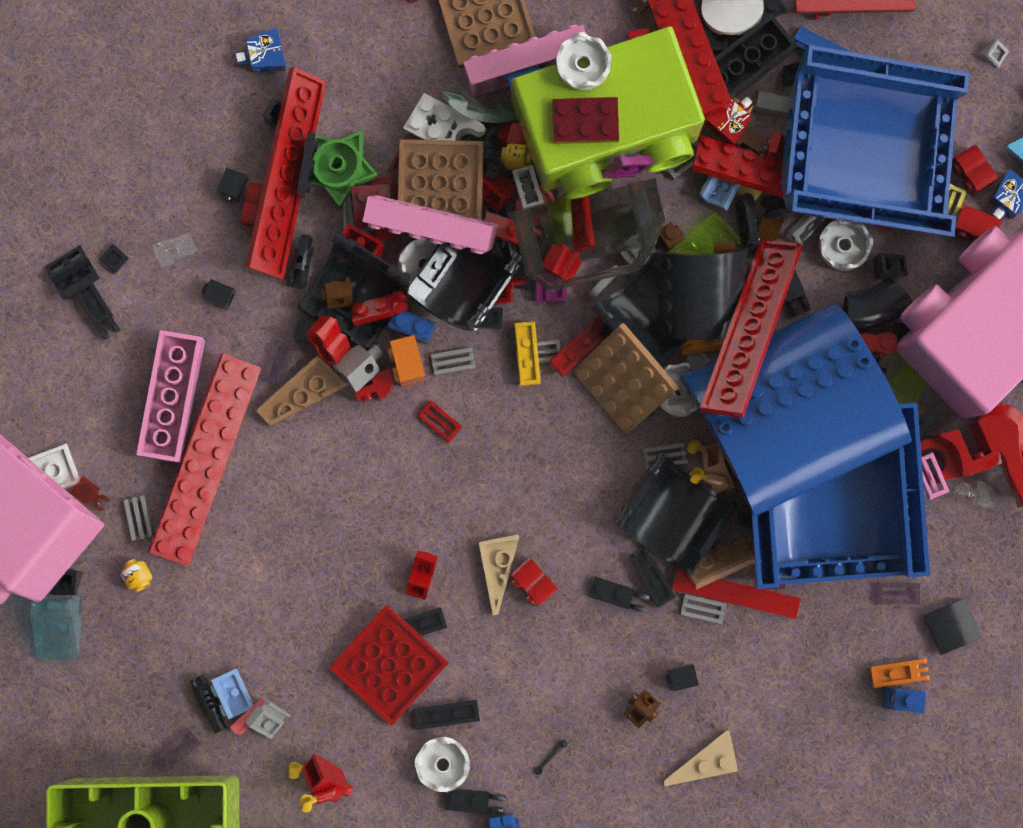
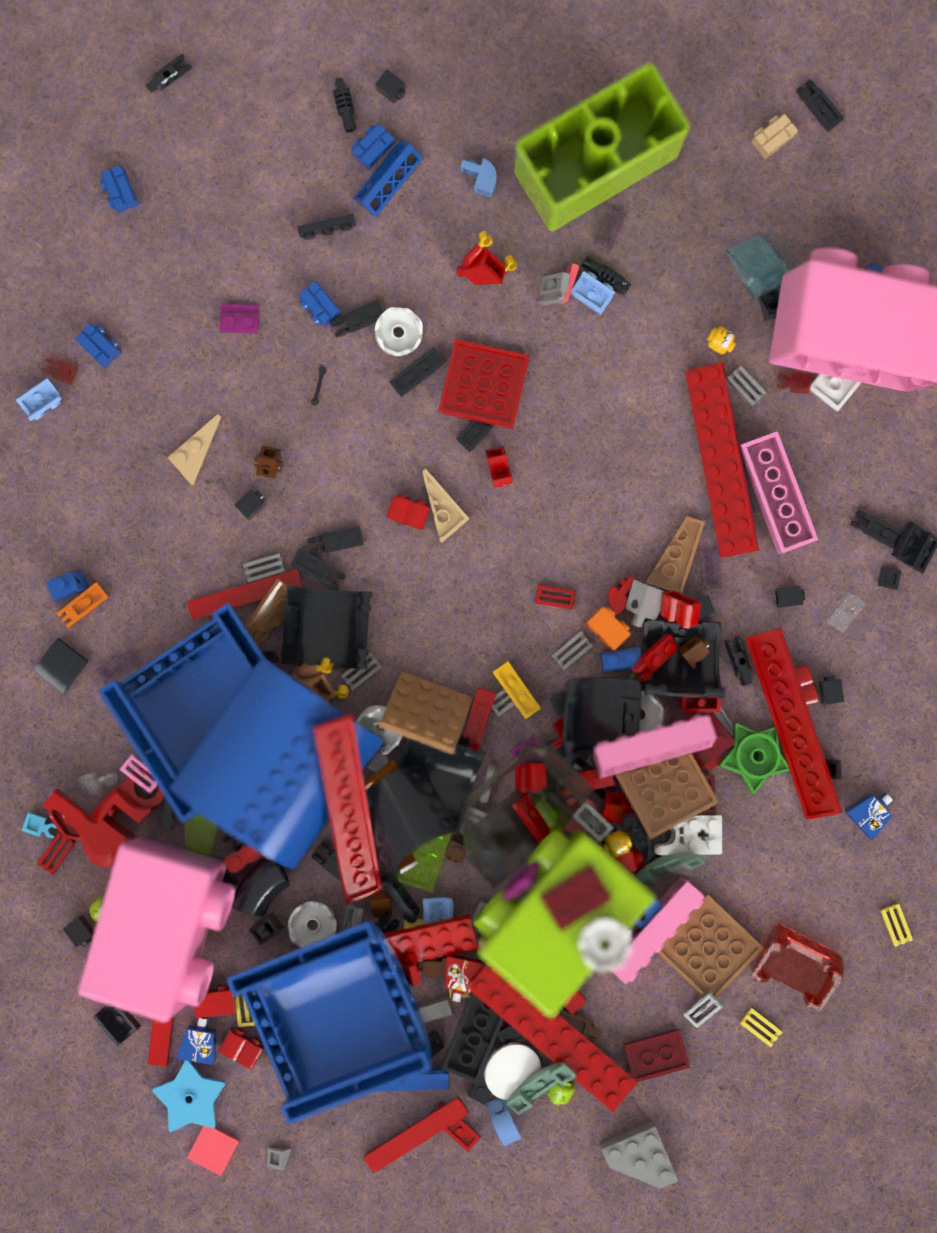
camera: 160 degrees right, 5 degrees up
(307, 165) = (780, 740): black plate -> none

